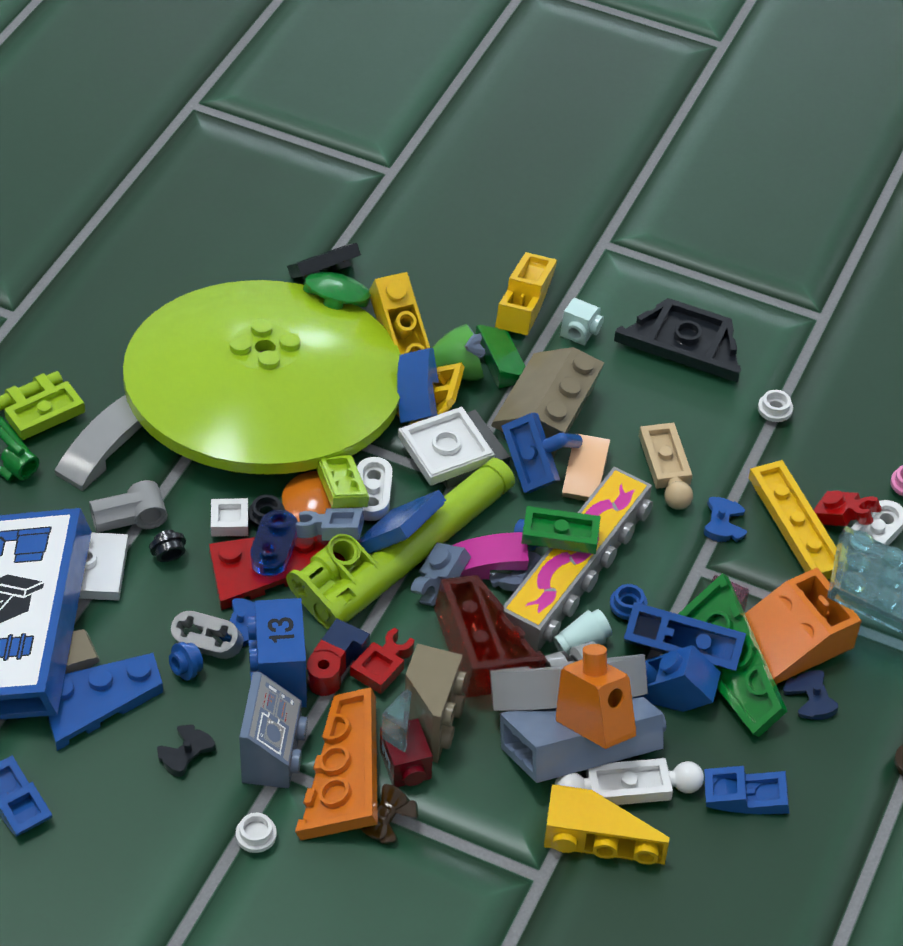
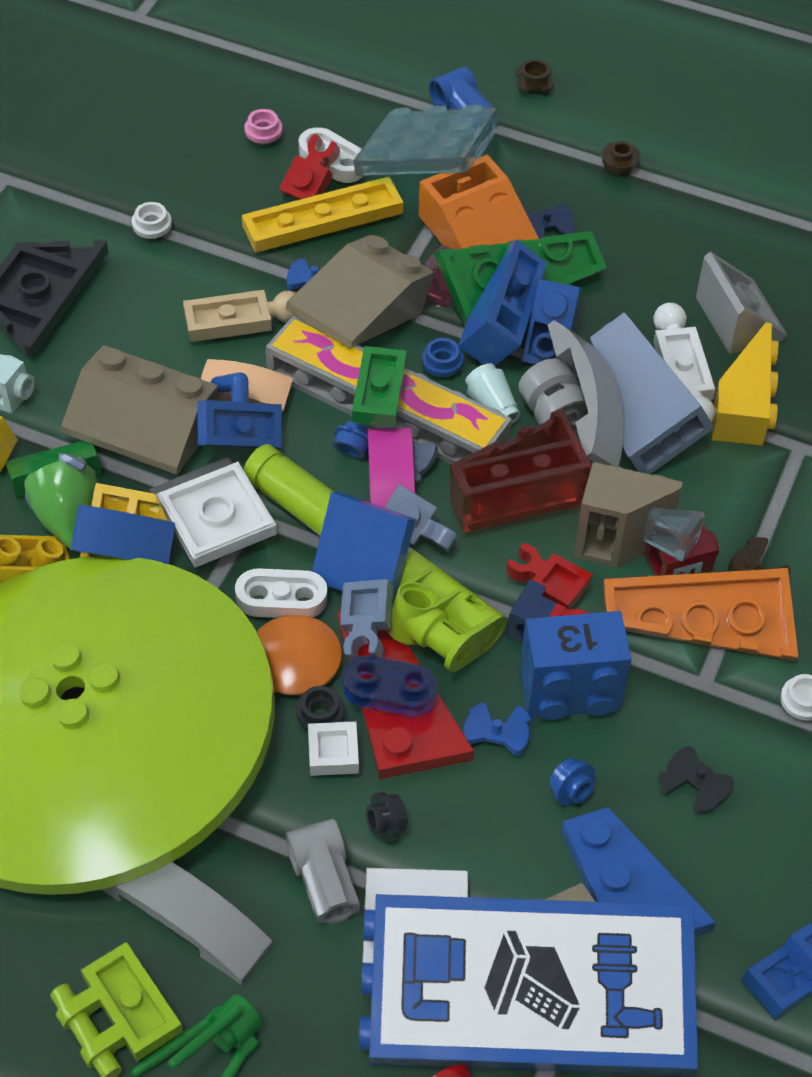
camera: 90 degrees left, 5 degrees up
(208, 626) = (539, 765): light grey beam -> none
(271, 734) = (686, 681): sand blue slope -> none
(342, 482) = (293, 610): lime plate -> none
(596, 699) = (646, 344): orange torso -> none
(681, 532) = (363, 292): none -> dark tan slope
(708, 833) = (734, 304): none -> light grey slope
(745, 793) = (674, 276): blue slope -> none

